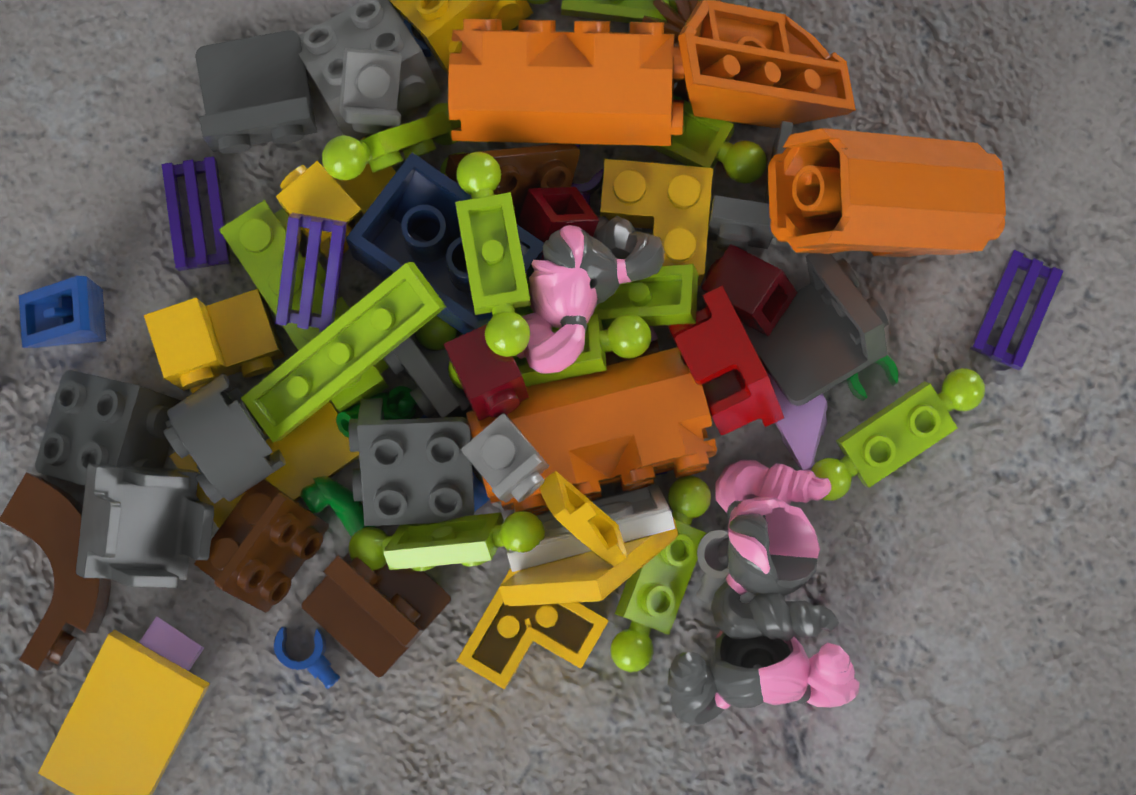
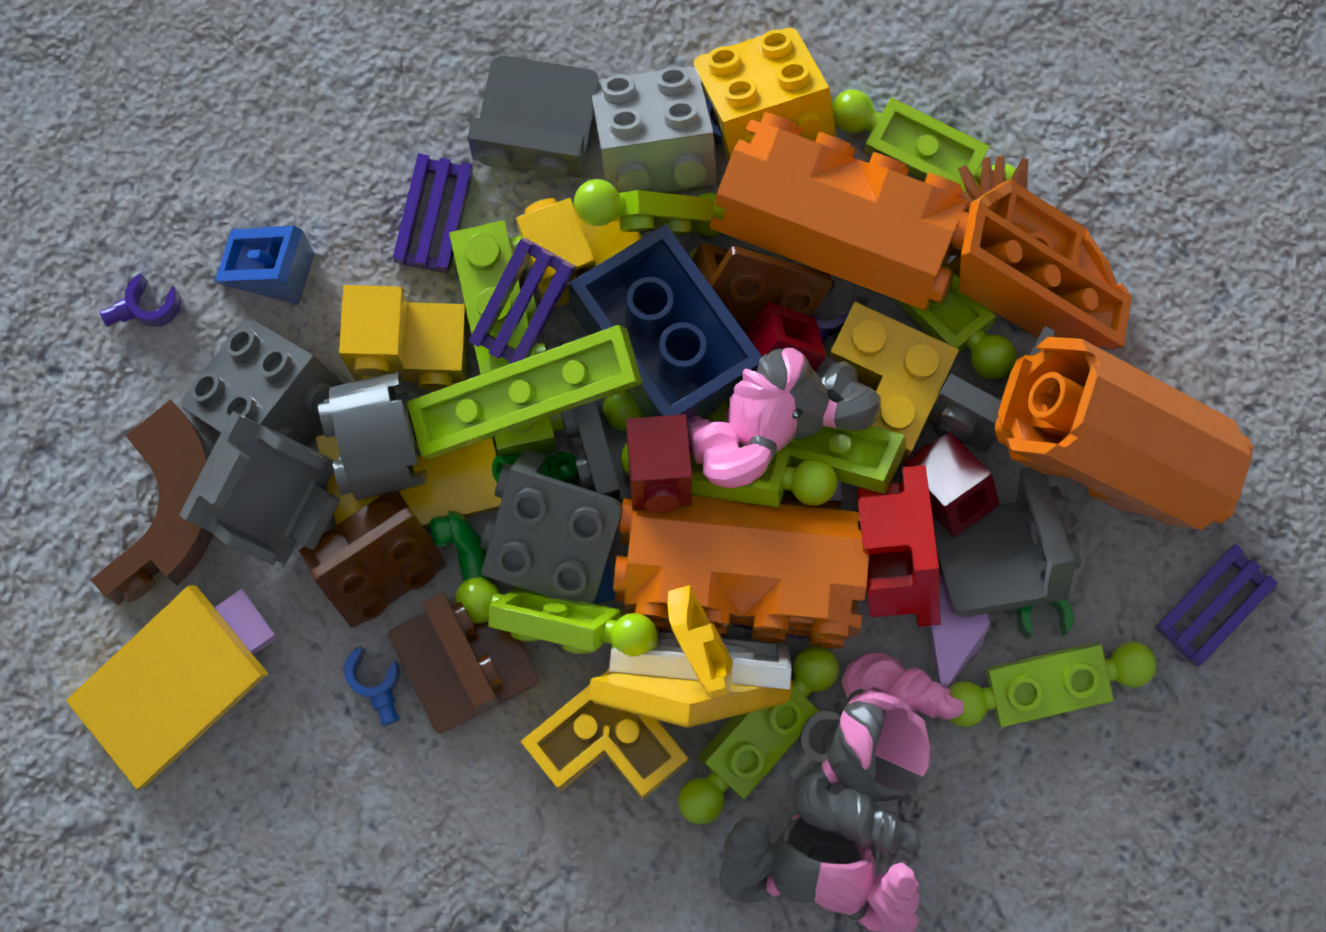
camera: 20 degrees right, 5 degrees down
(370, 89) = (648, 149): light grey bracket -> none
(493, 254) = (708, 349): lime plate -> none
(506, 460) = (645, 556): light grey bracket -> none

